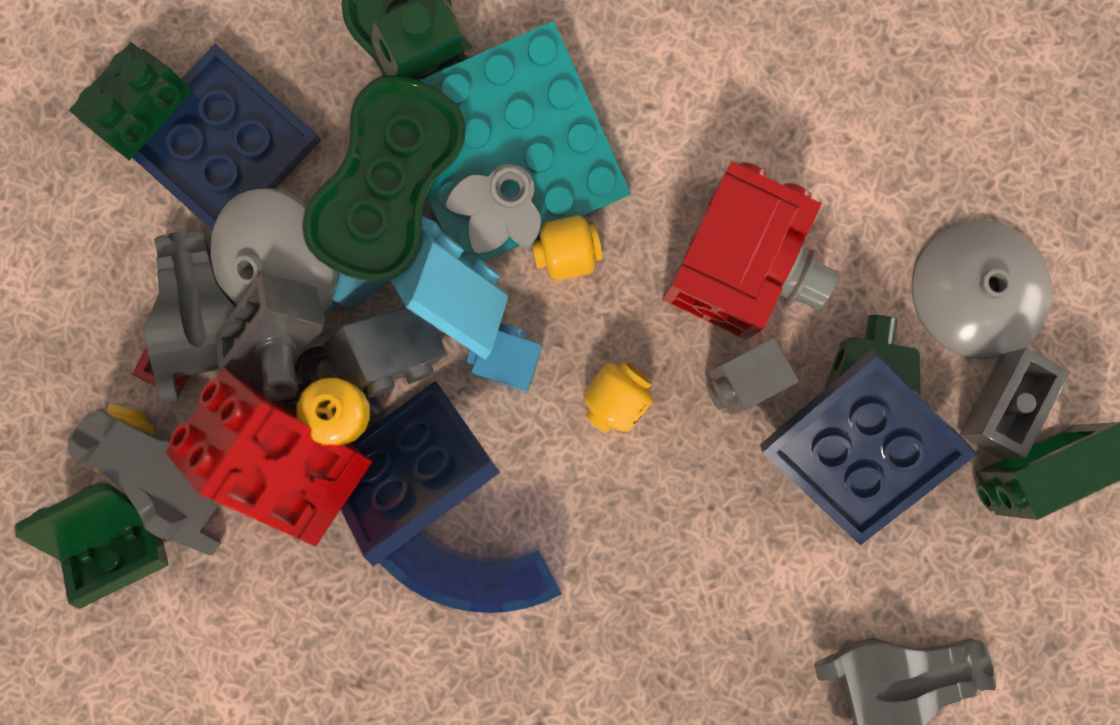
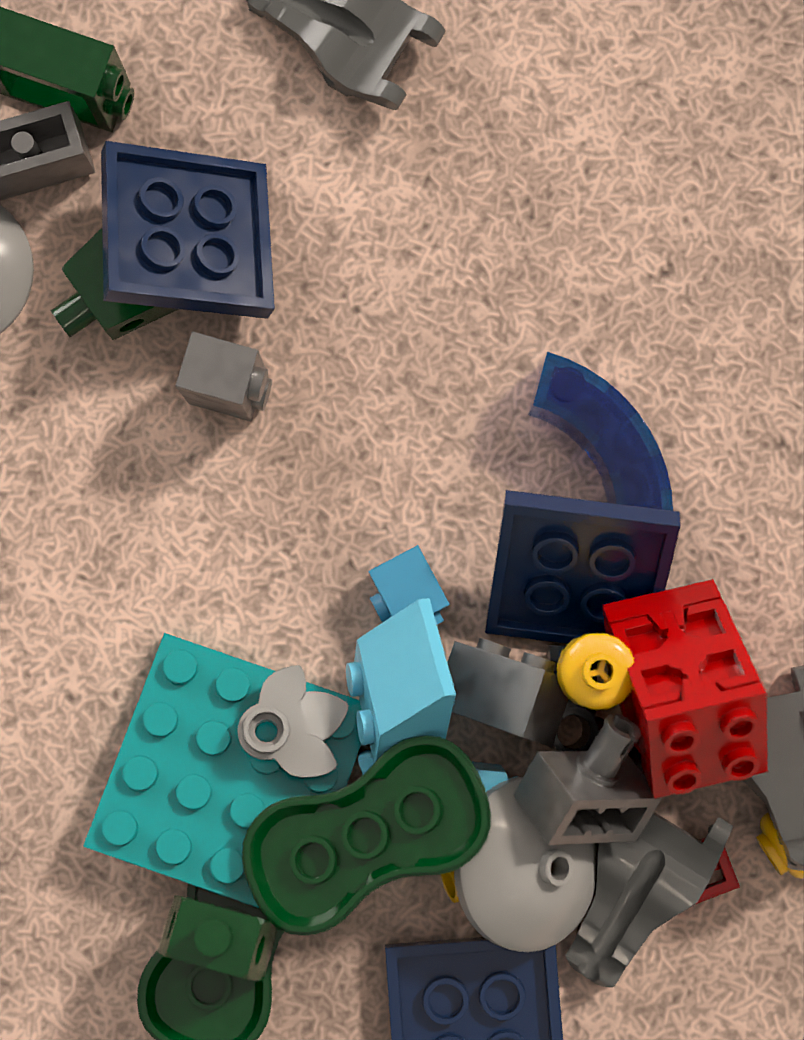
camera: 135 degrees left, 0 degrees up
(567, 248) = (264, 637): yellow head -> none
(618, 397) = (345, 470): yellow head -> none
(750, 254) = (119, 479): red piece -> none

